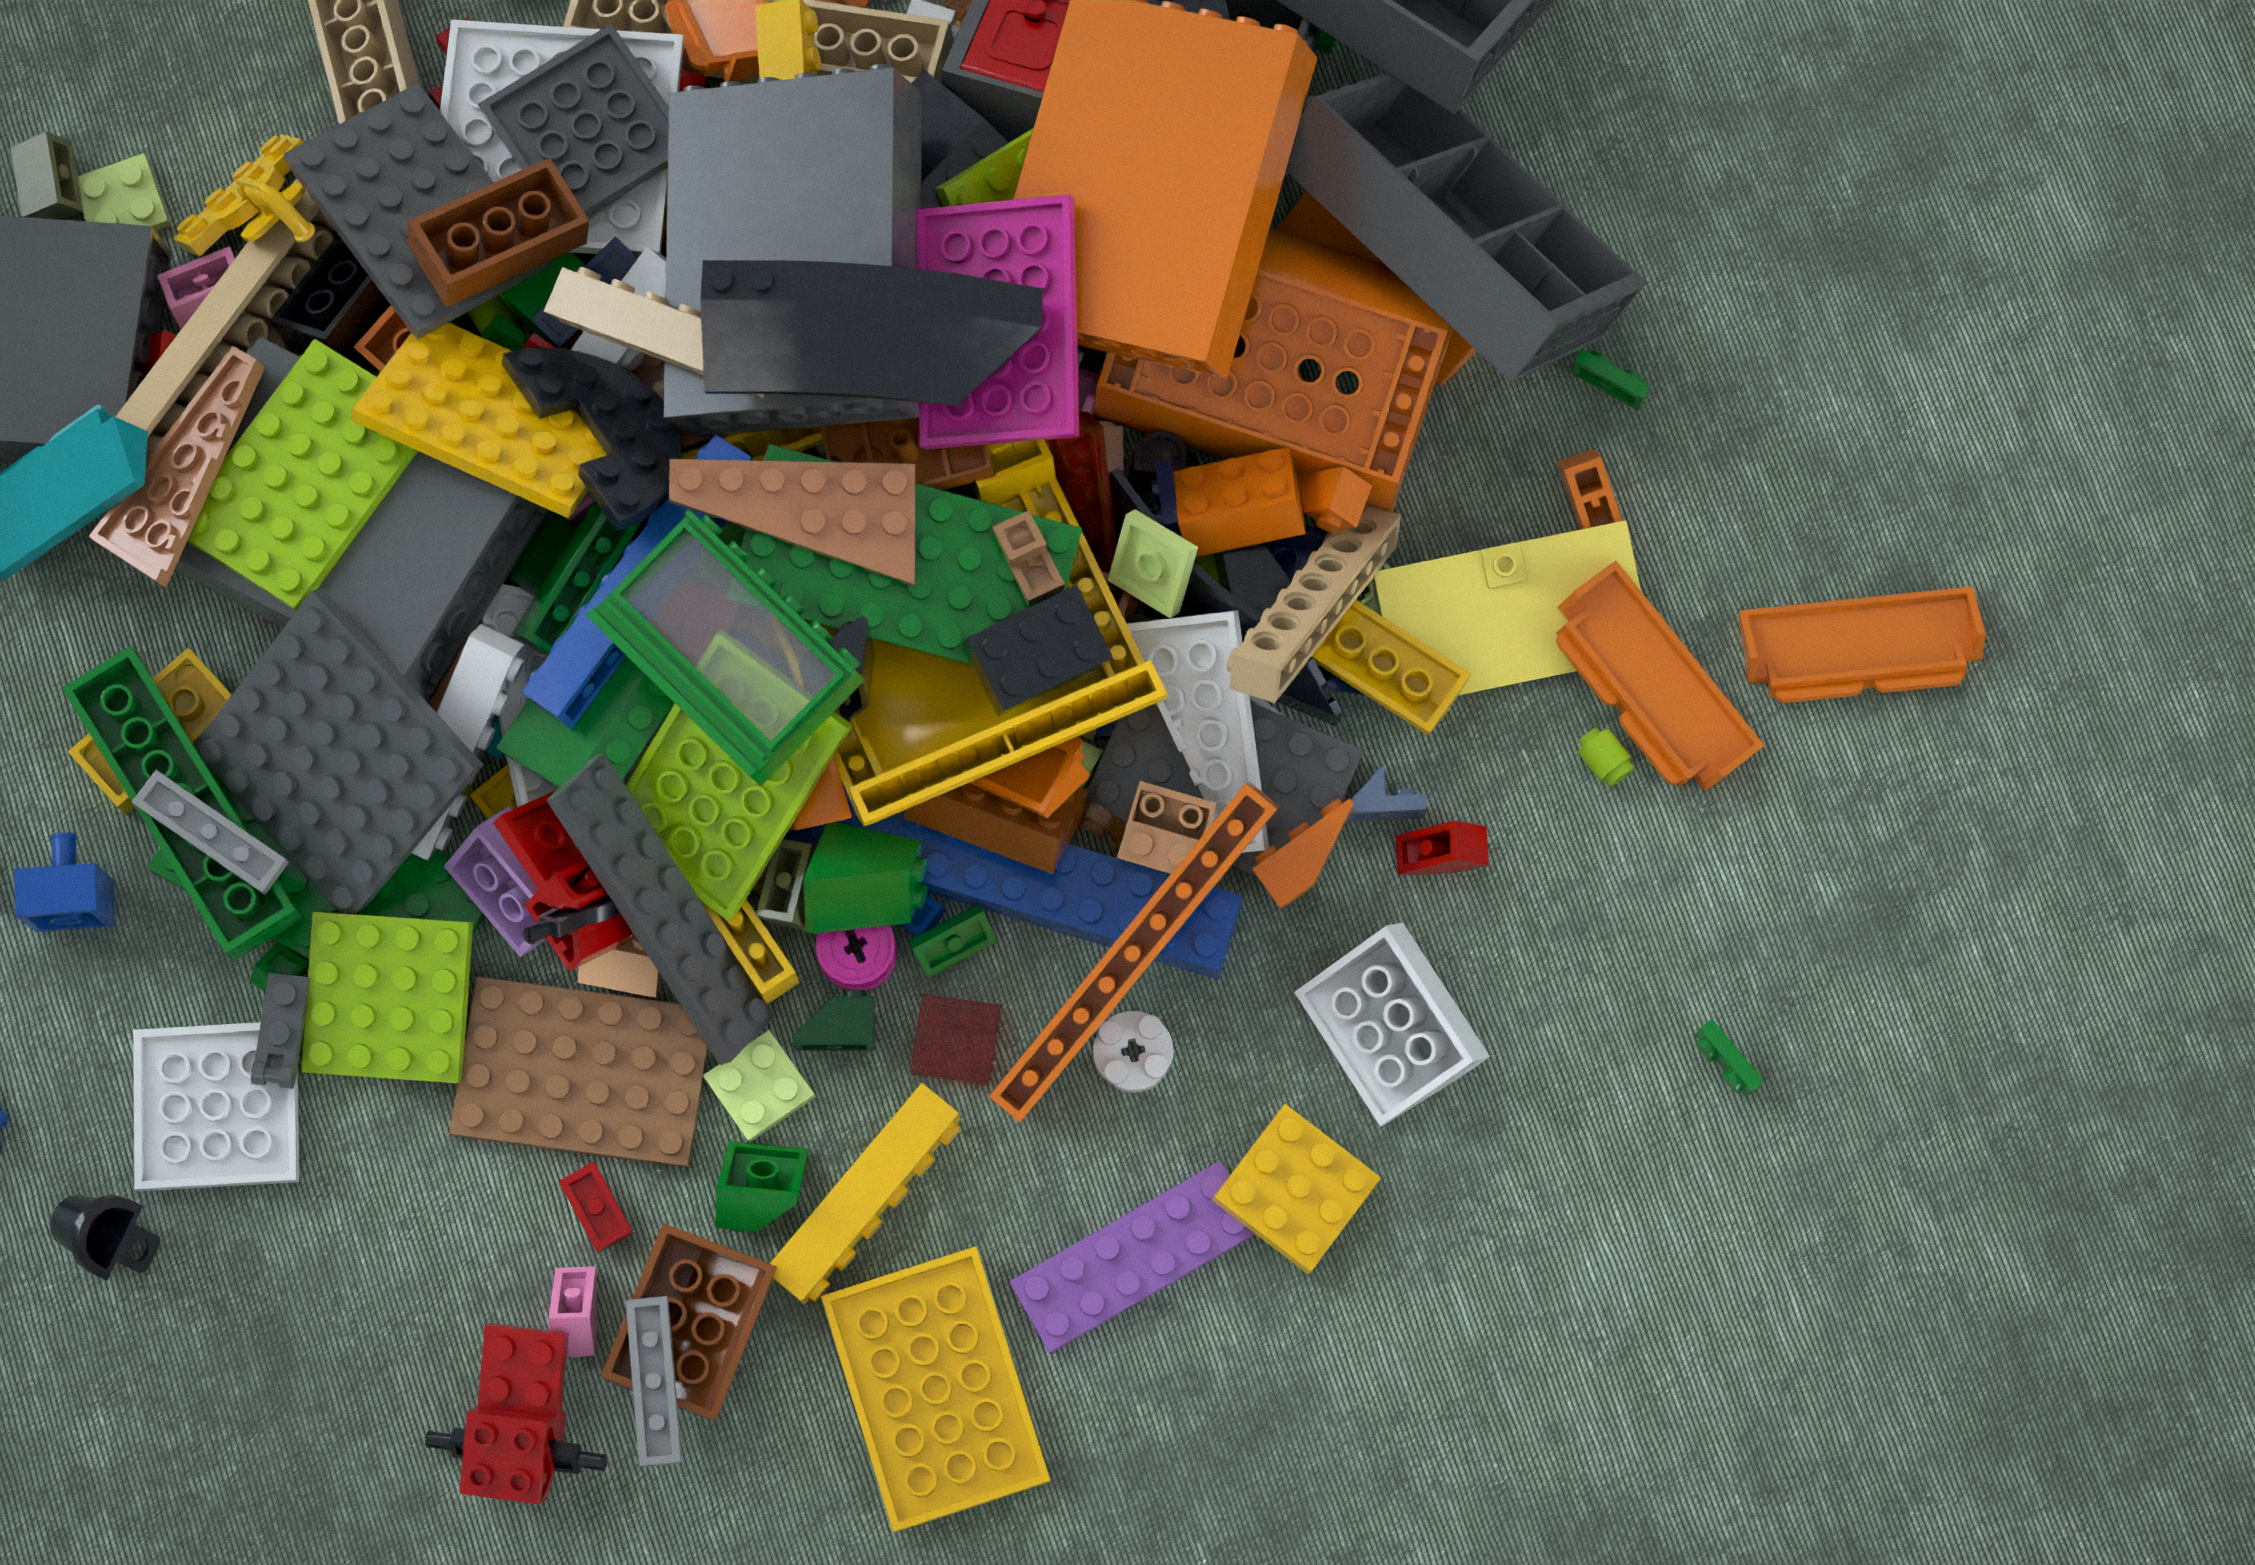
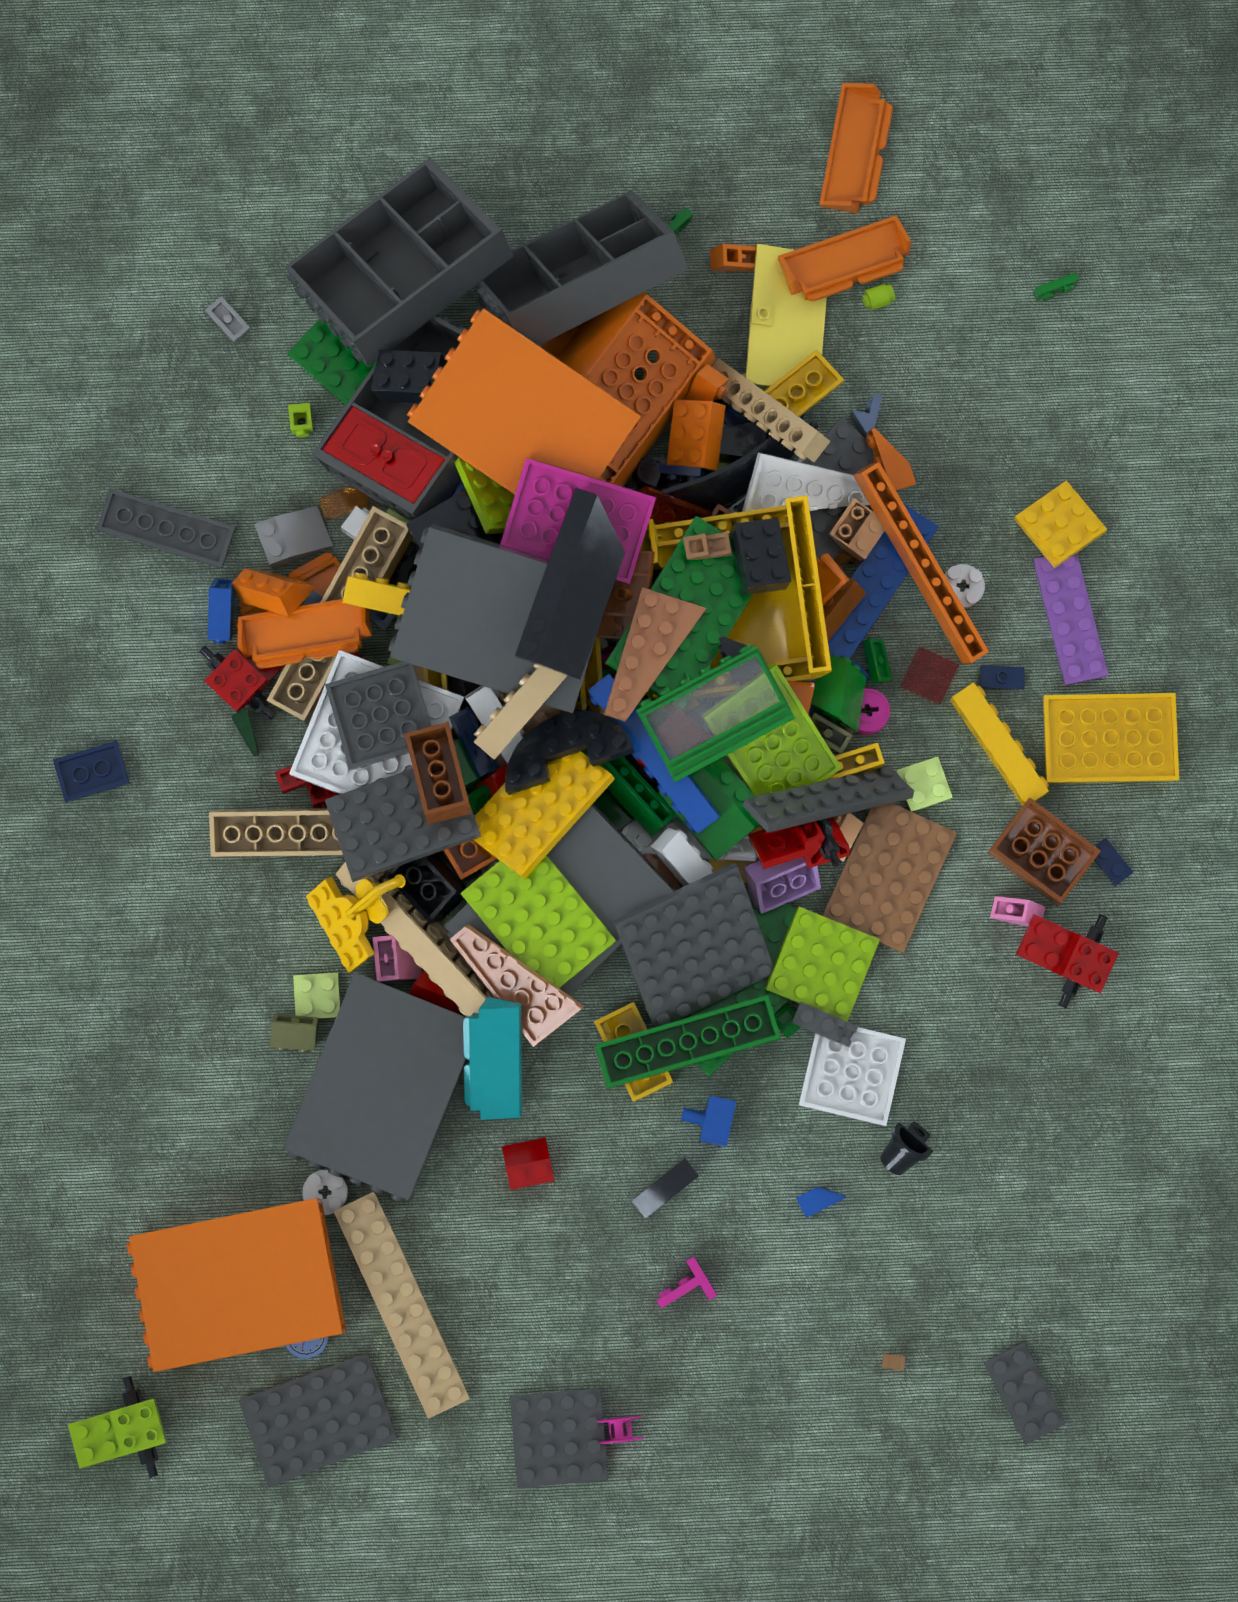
camera: 80 degrees left, 5 degrees up
(210, 832) = (714, 1026): light grey plate -> none
(596, 1207) = (965, 886): red plate -> none
(653, 1381) = (1074, 874): light grey plate -> none
(713, 1453) = (1112, 863): none -> dark blue plate
(758, 1184) = (979, 797): green slope -> none
(840, 1025) = (905, 731): dark green slope -> none
(989, 1167) = (1002, 677): none -> dark blue plate
(1152, 563) = (719, 488): yellowish green plate -> none
(1391, 1023) = (988, 449): white slope -> none
(1442, 849) = (903, 395): red slope -> none

